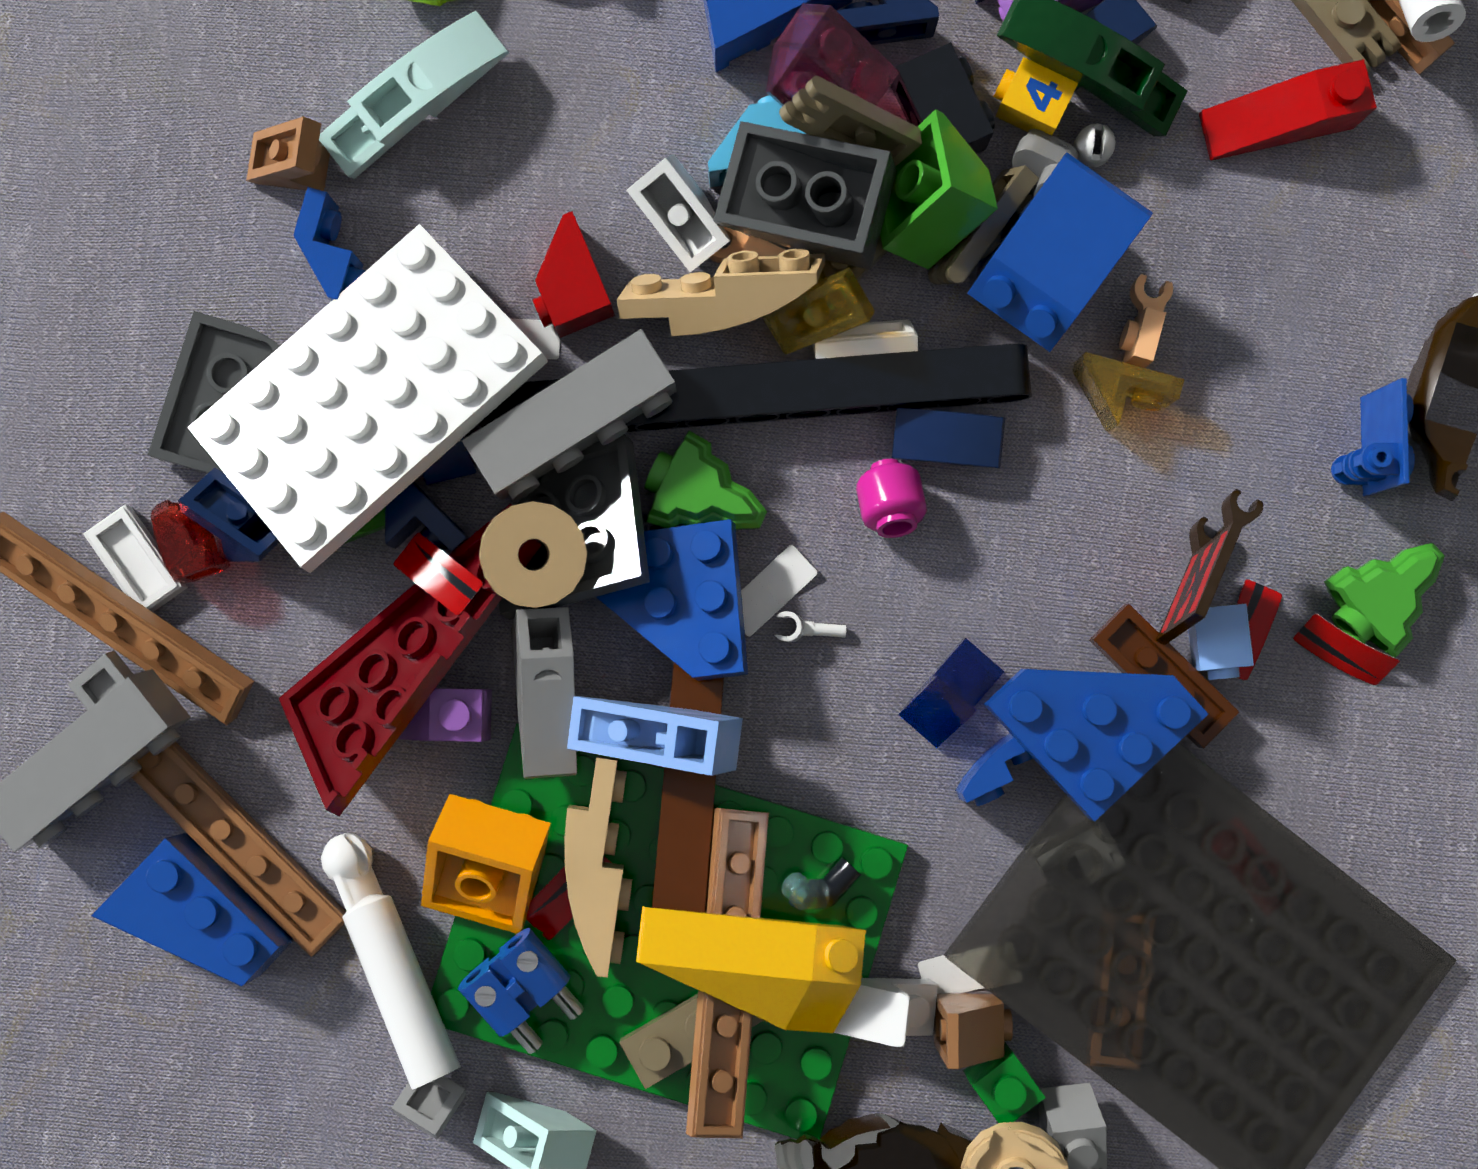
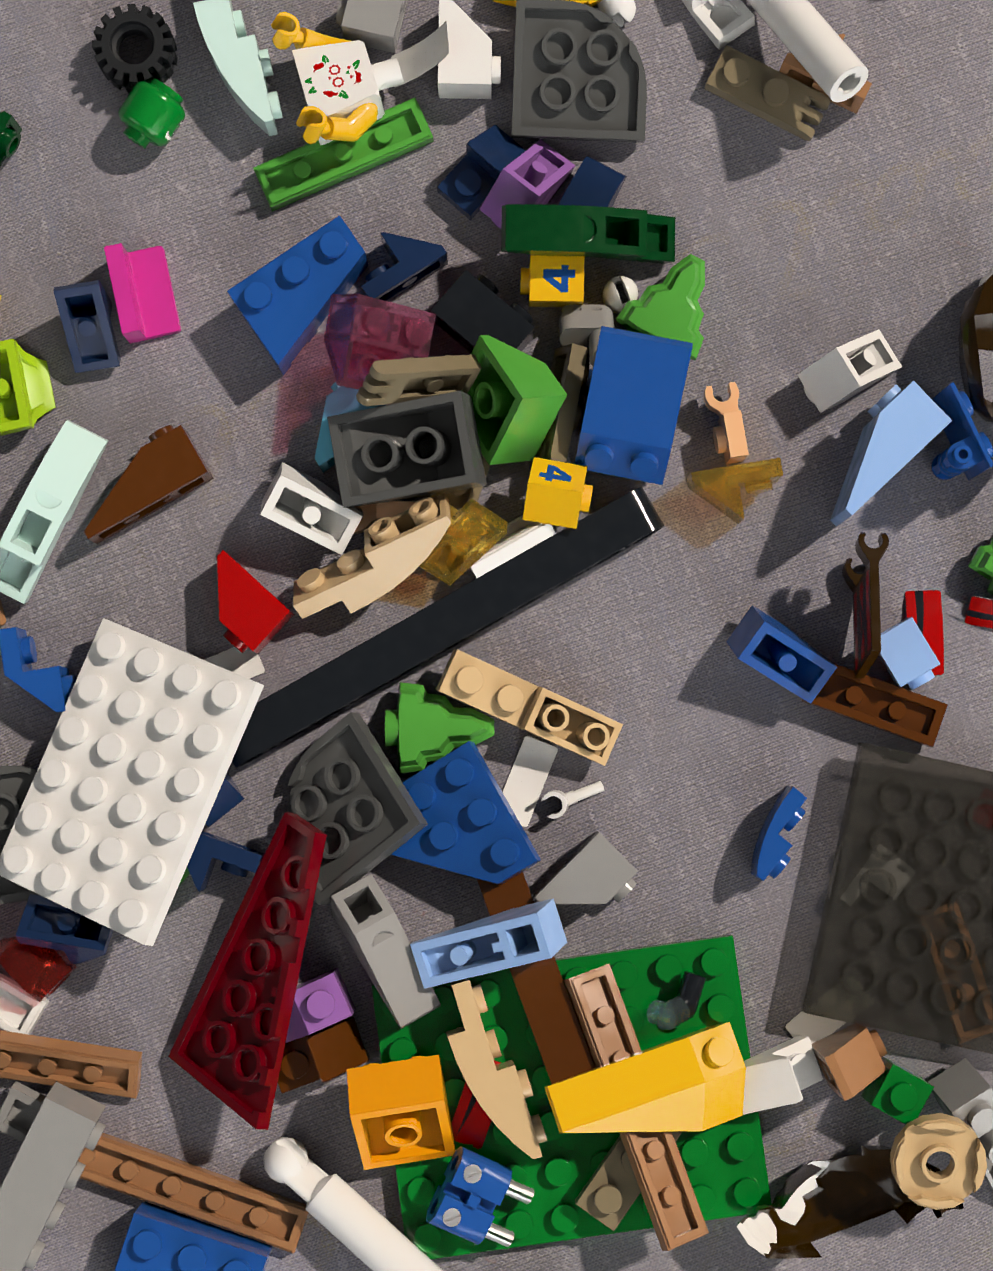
camera: 25 degrees left, 0 degrees up
(431, 769) = (322, 1055): none -> reddish brown slope
(438, 574) = (253, 896): red sticker -> none
(536, 112) = (154, 478): none -> reddish brown slope
(564, 560) = (352, 852): tan tile -> none
(571, 416) = (301, 720): light grey brick -> none
(792, 716) = (590, 875): none -> light grey slope
(808, 515) = (529, 707): none -> tan slope
(891, 498) = (589, 662): dark pink head -> none
(938, 309) = (556, 493): none -> yellow brick
(948, 438) = (613, 591): dark blue slope -> none
(951, 693) = (710, 796): clear blue slope -> none
(1091, 581) = (780, 654): none -> blue slope
(1095, 727) = (838, 772): blue plate -> none
(1147, 174) = (670, 307): none -> bright green rock
(1290, 111) = (764, 197): red slope -> none
(1293, 325) = (848, 370): none -> white slope
(1320, 407) = (899, 431): none -> light blue slope

